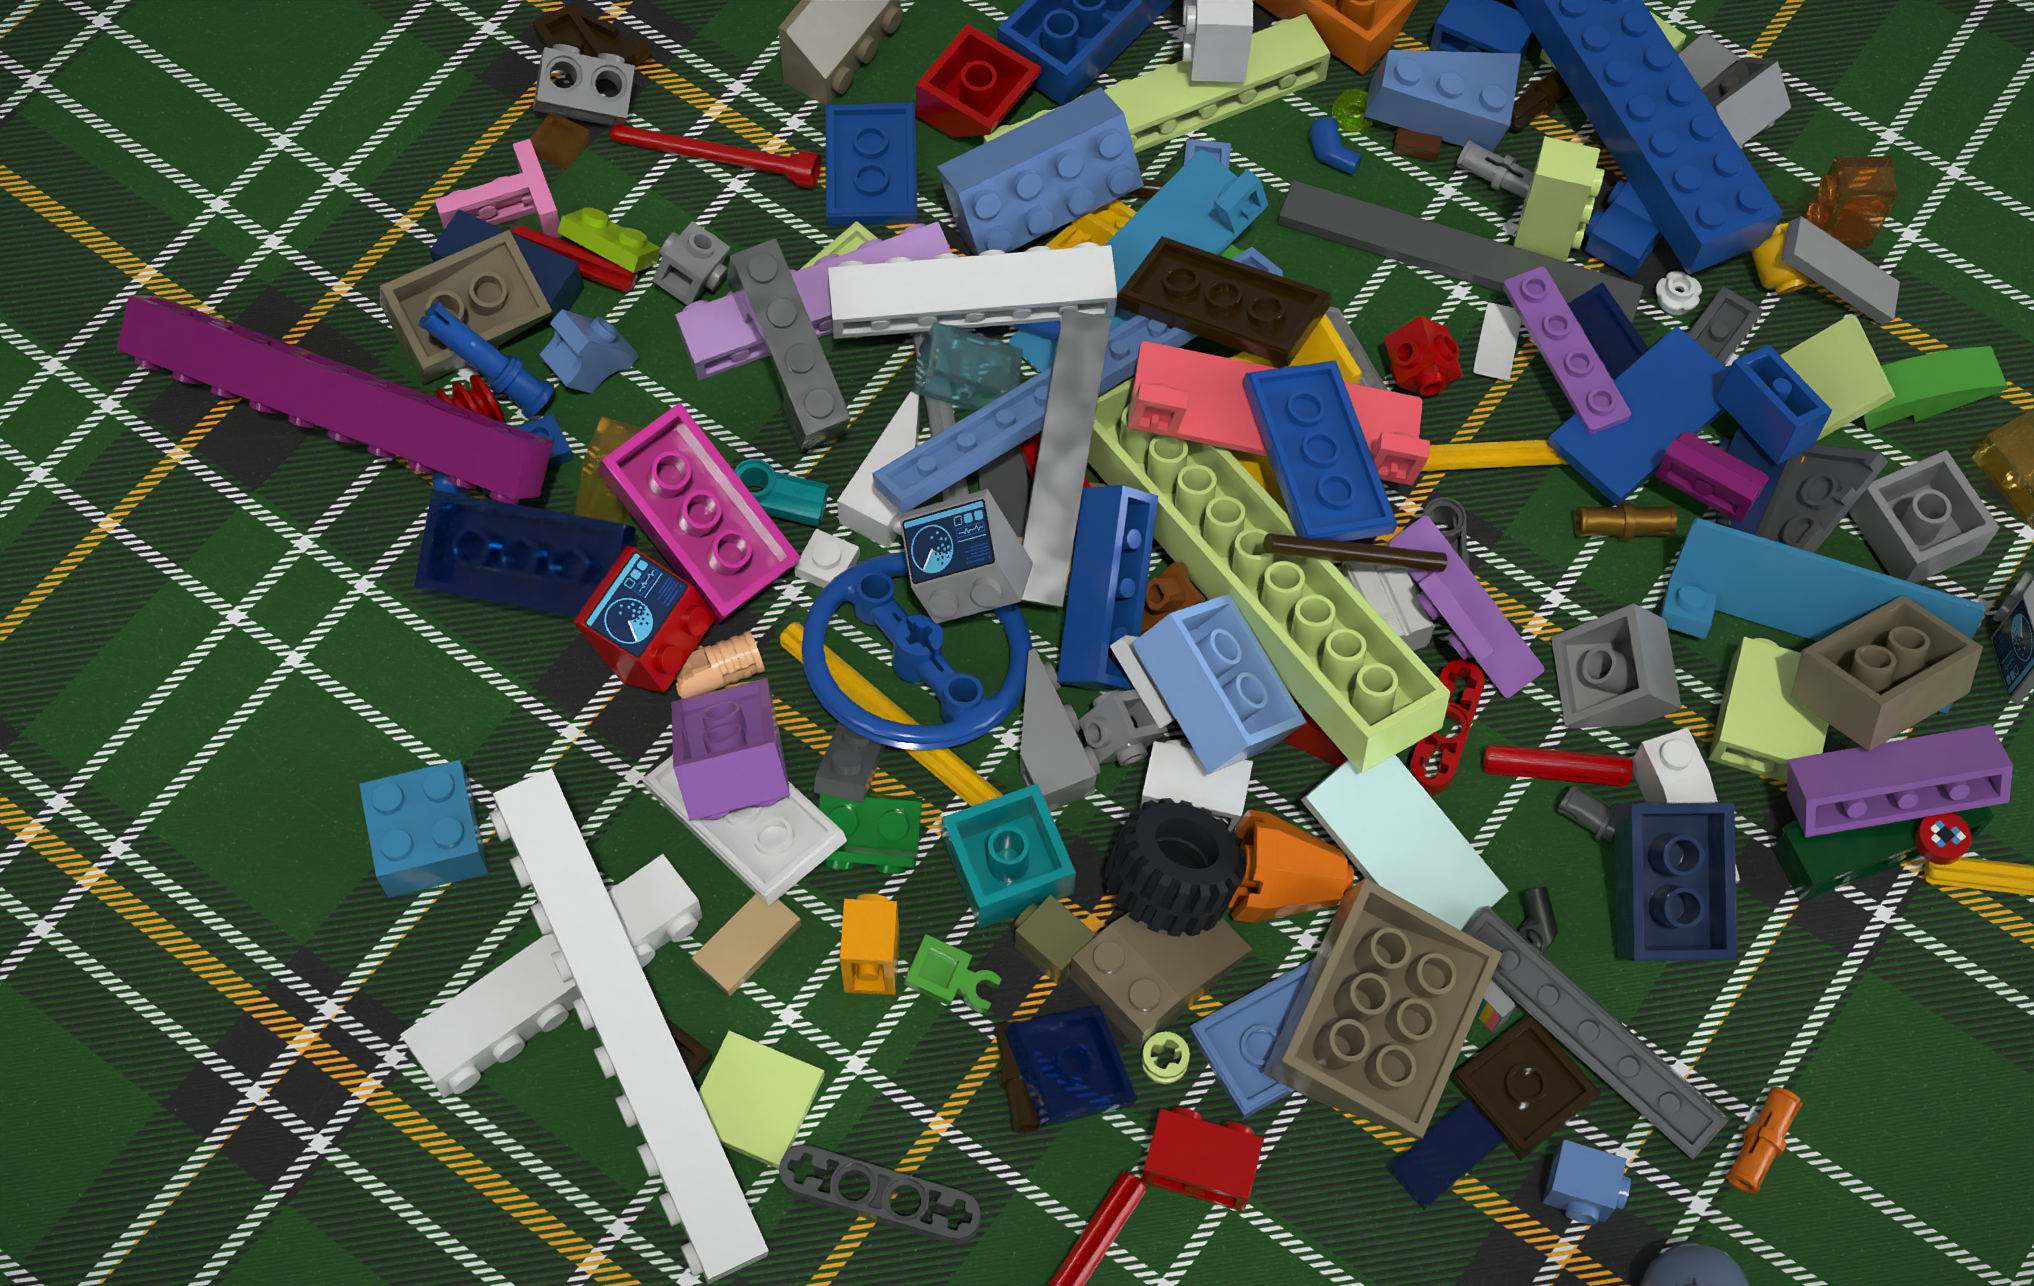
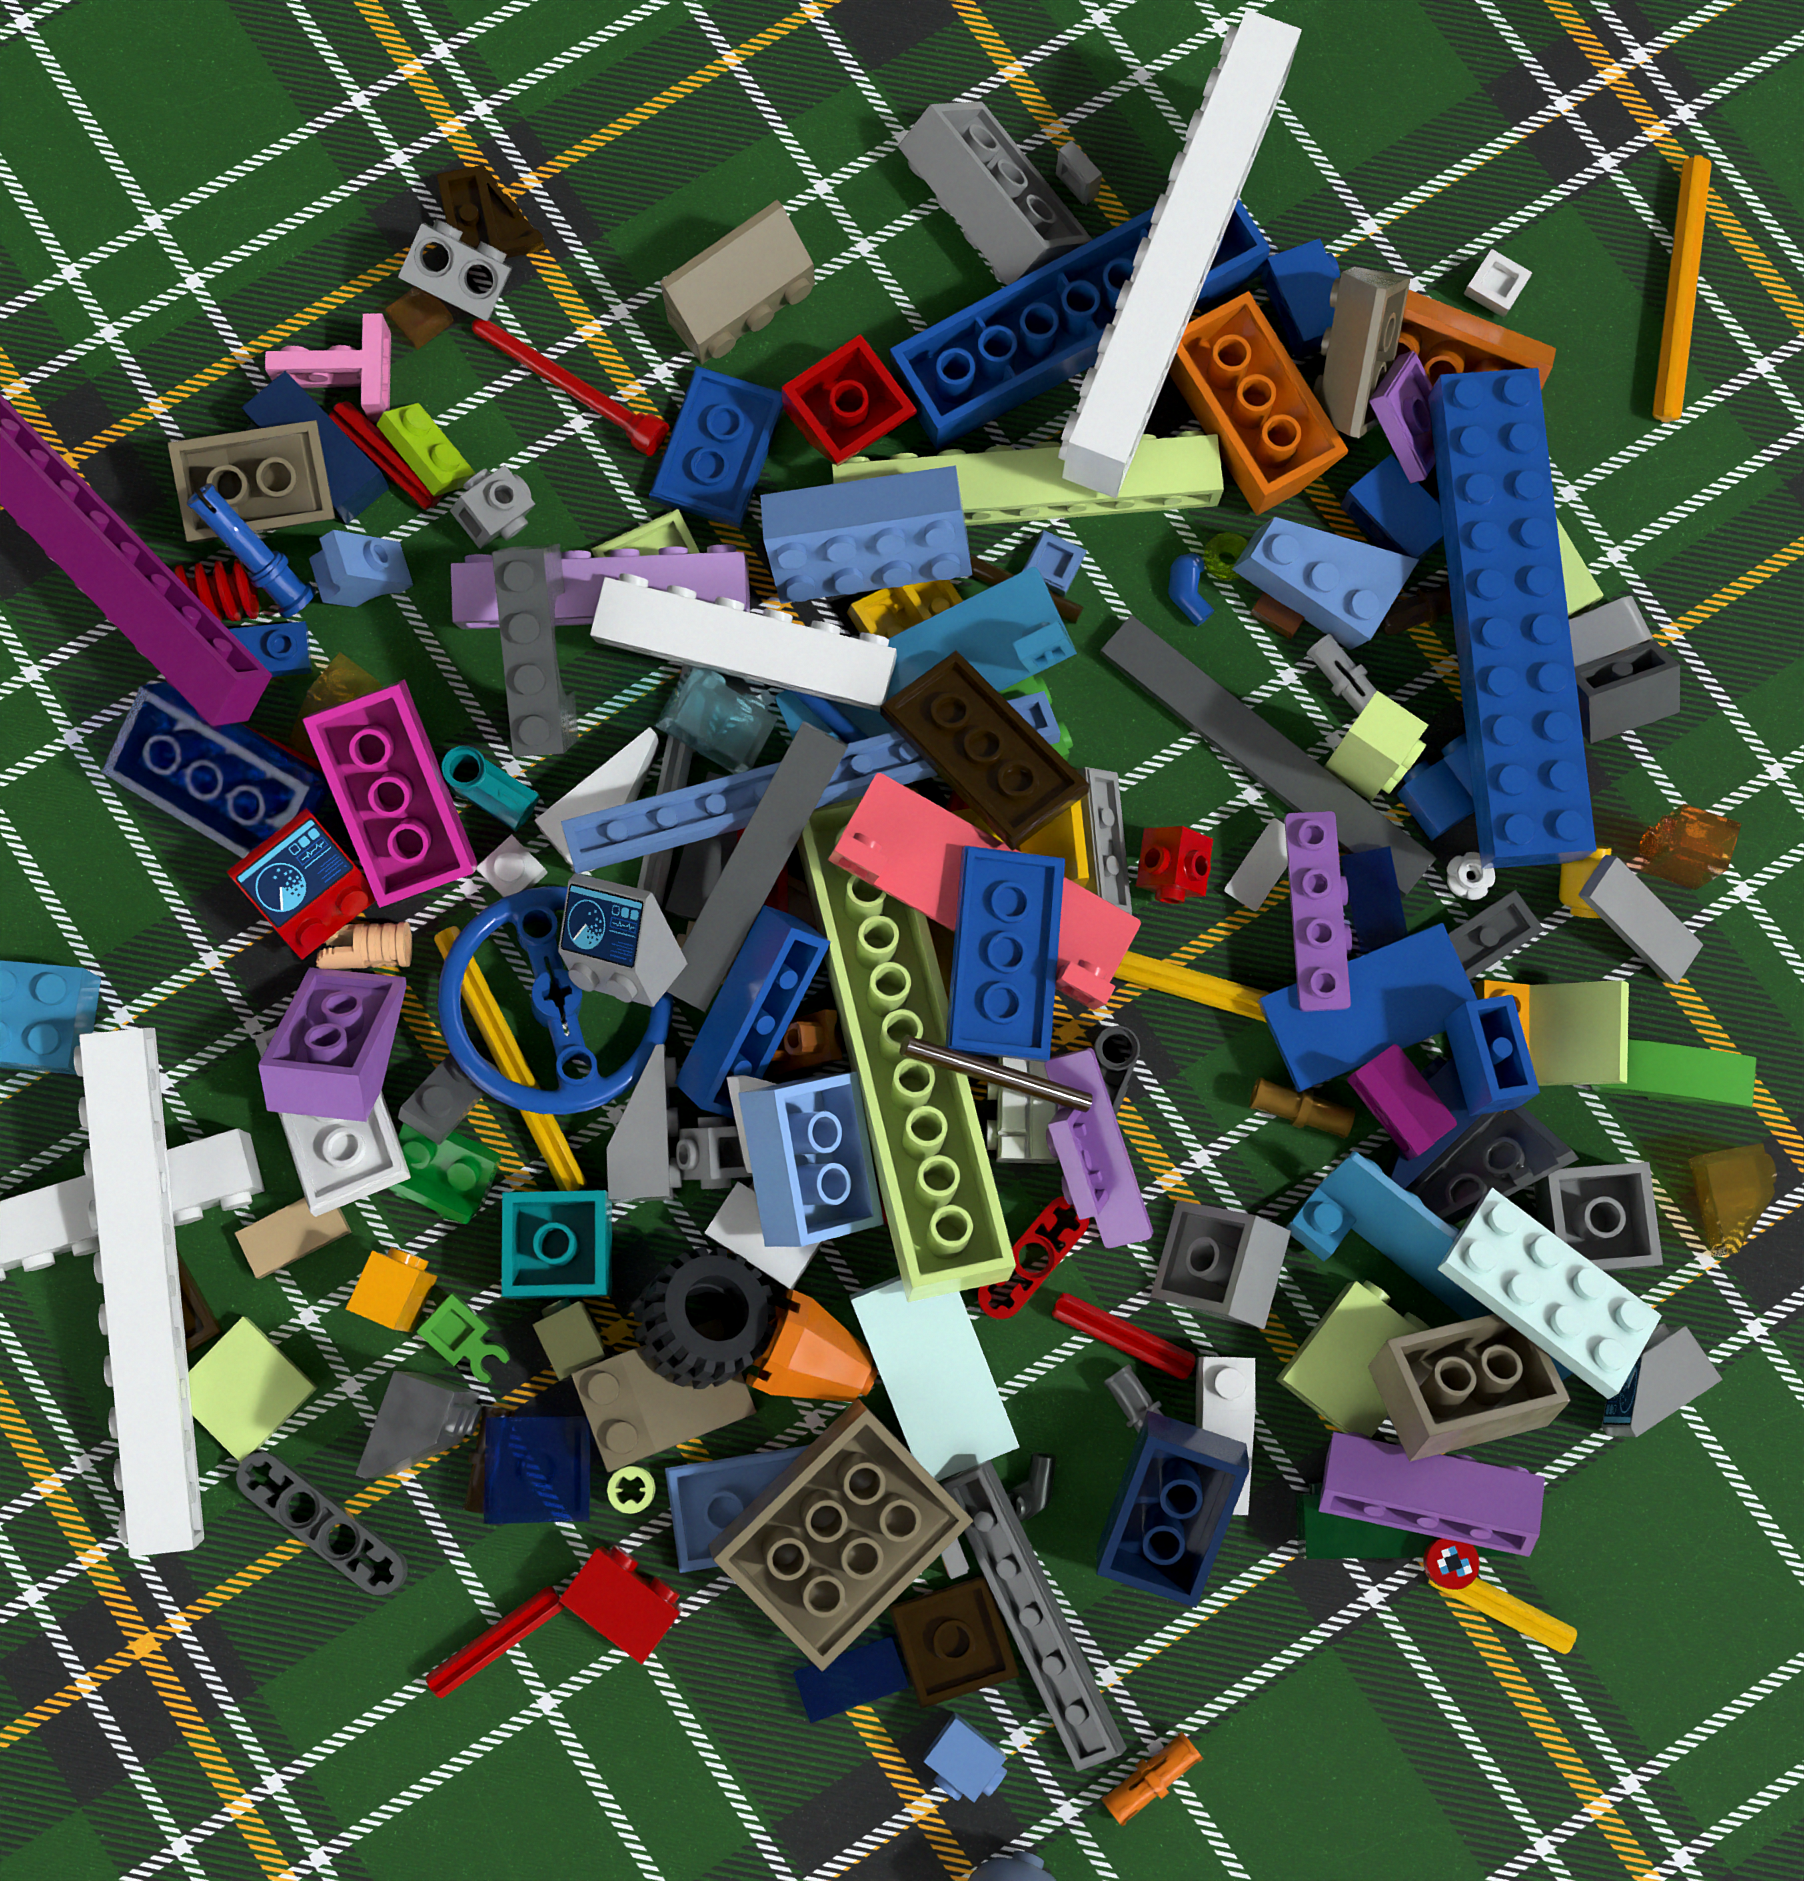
camera: 20 degrees right, 15 degrees up
(953, 1042) = (417, 1422): none -> flat silver slope
(1919, 573) = (1550, 1293): none -> light aqua plate

